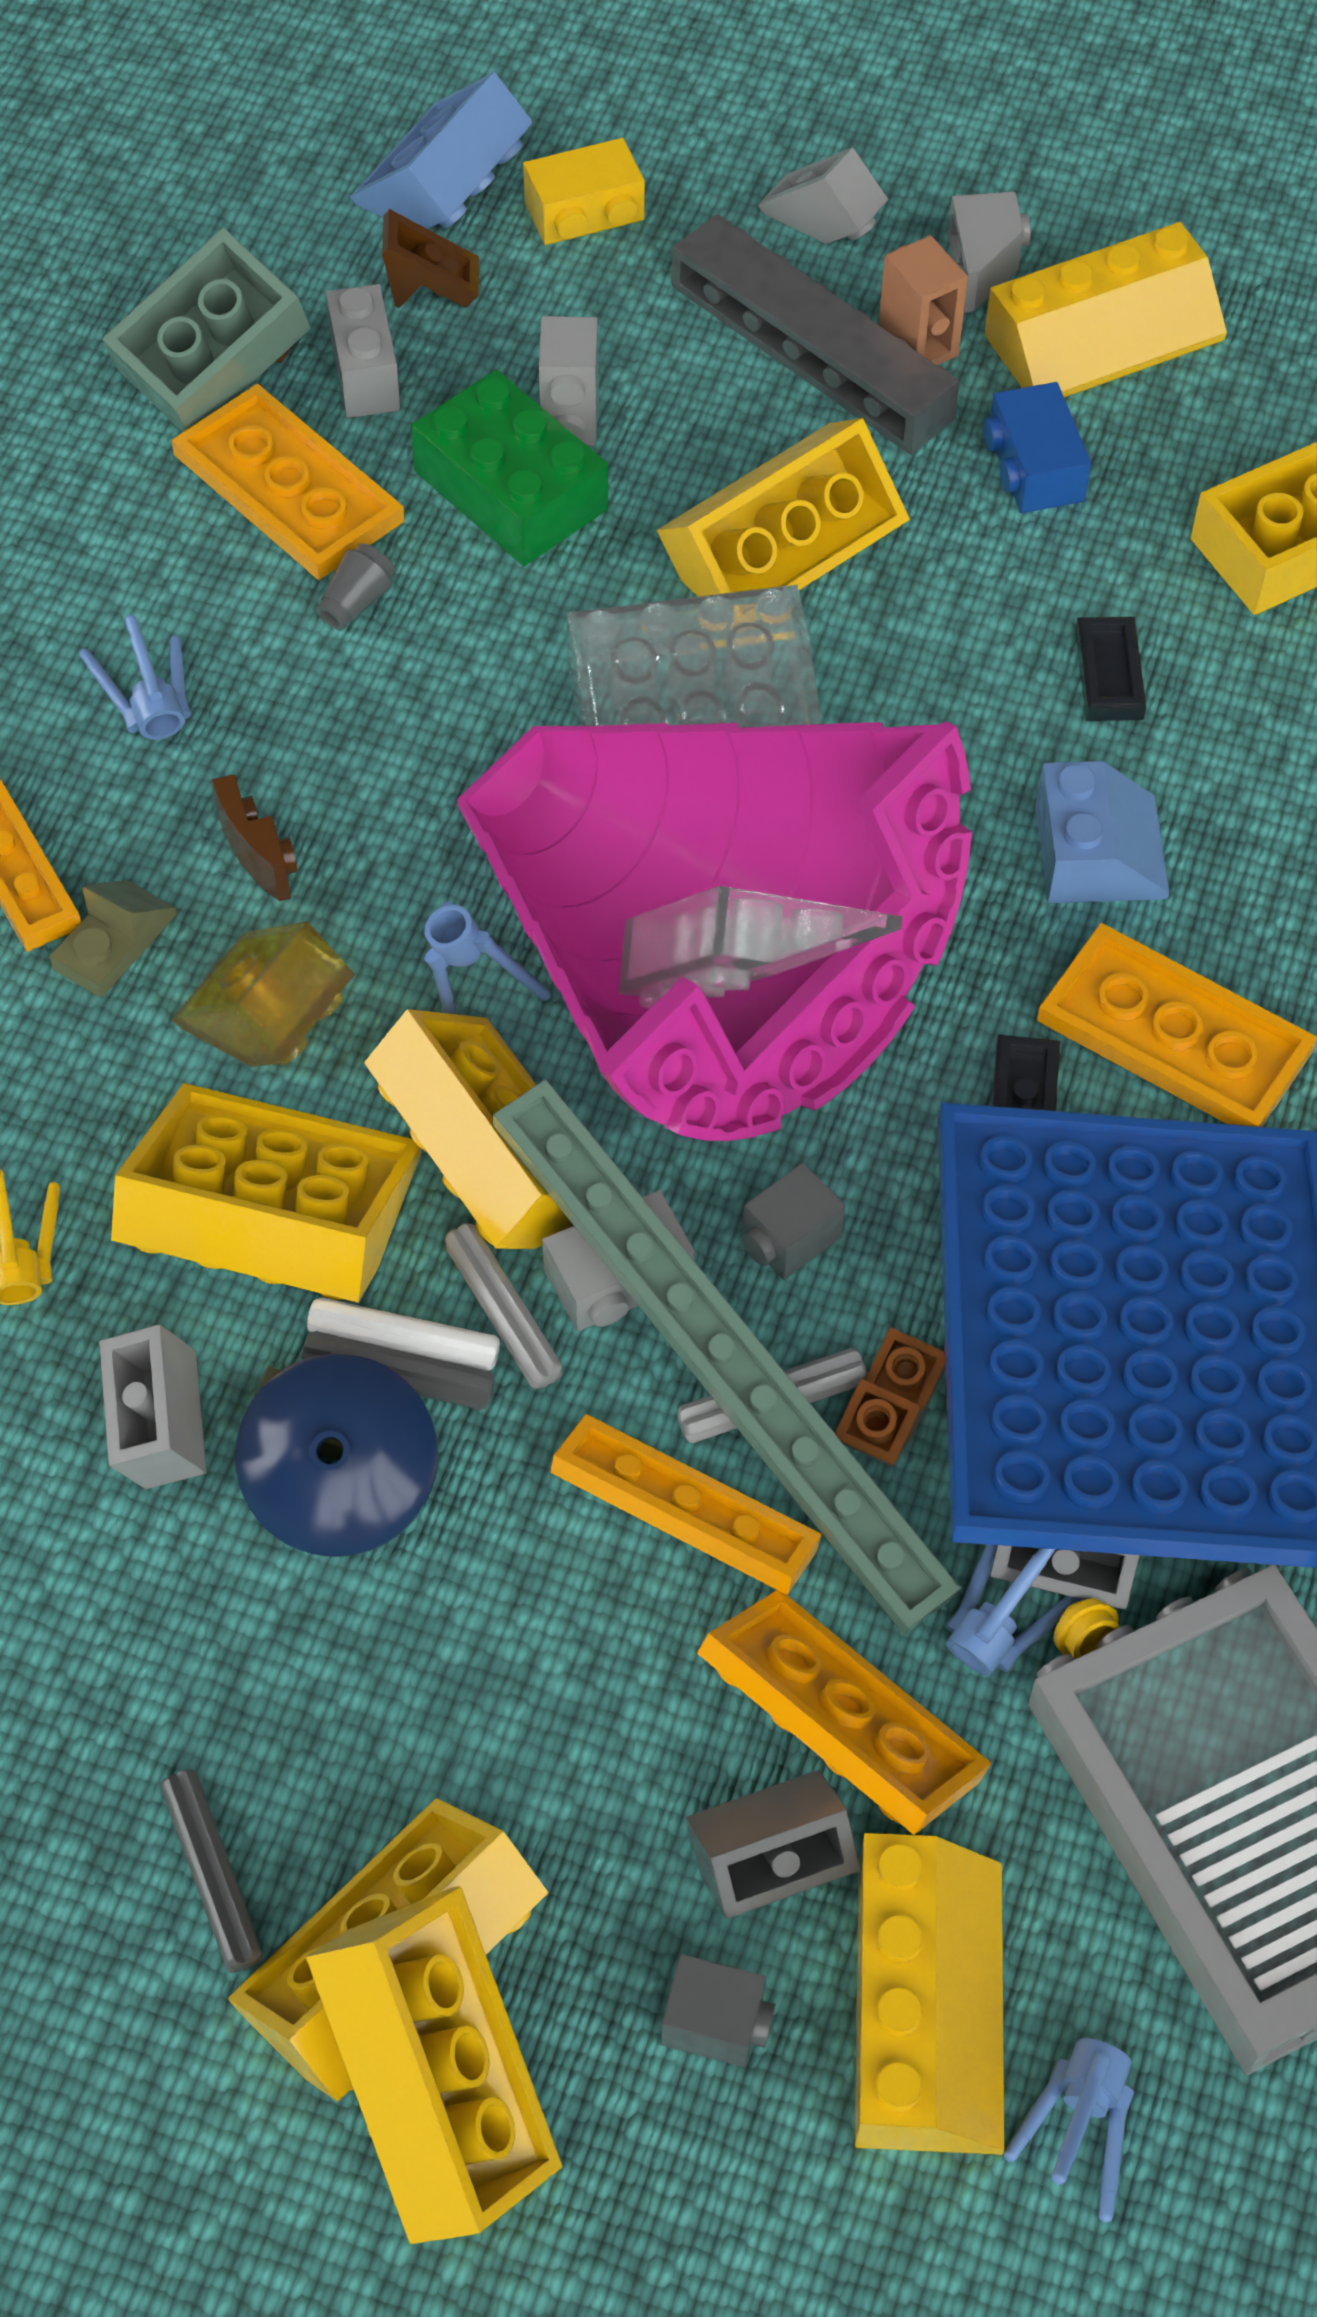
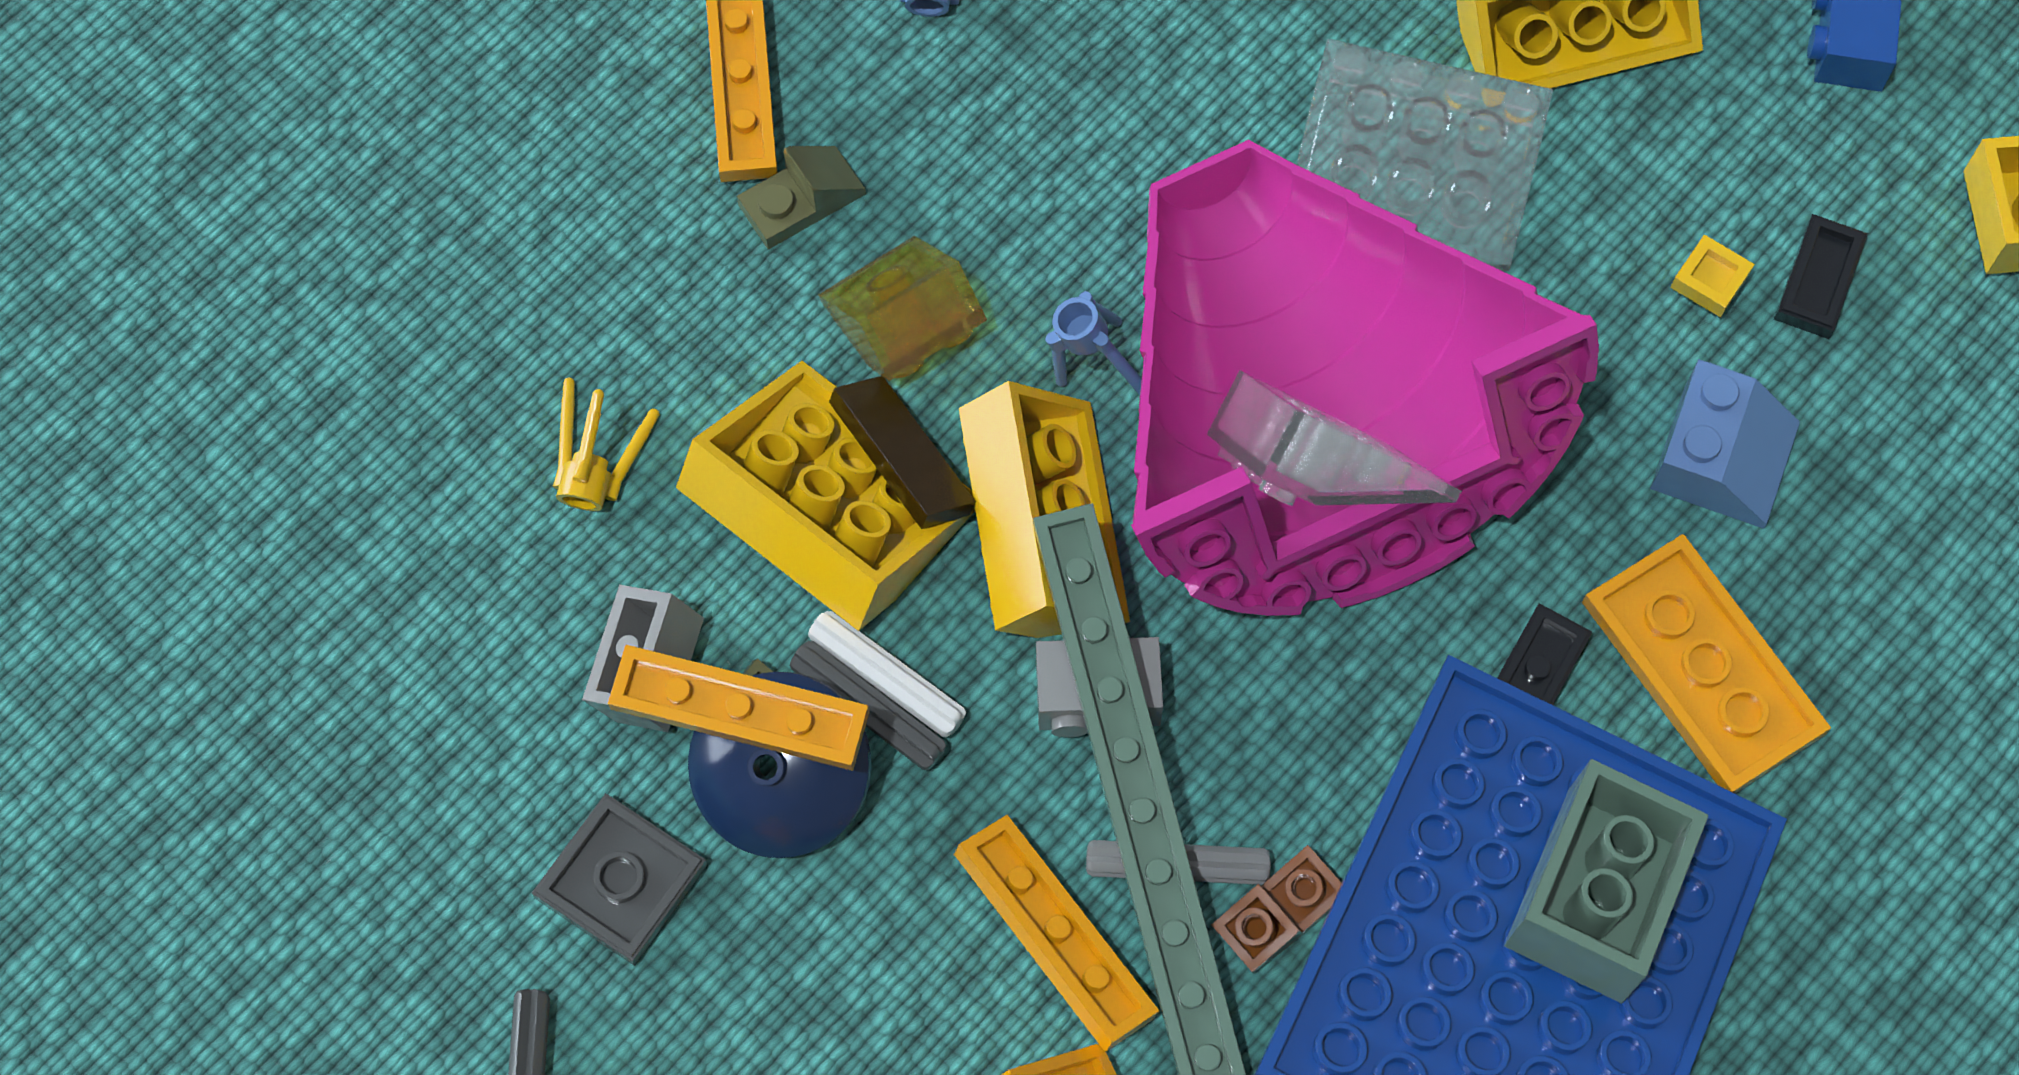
camera: 25 degrees right, 10 degrees up
(219, 1634) = (620, 879): none -> dark grey tile
(254, 839) = (959, 154): reddish brown slope -> none
(279, 1399) = (739, 707): none -> light orange plate
(325, 1123) = (902, 452): none -> dark brown tile
(503, 1306) = (983, 682): light grey axle -> none
(792, 1222) = (1266, 710): dark grey brick -> none
(1015, 699) = (1712, 275): none -> yellow plate
(1194, 1229) = (1607, 881): none -> sand green brick

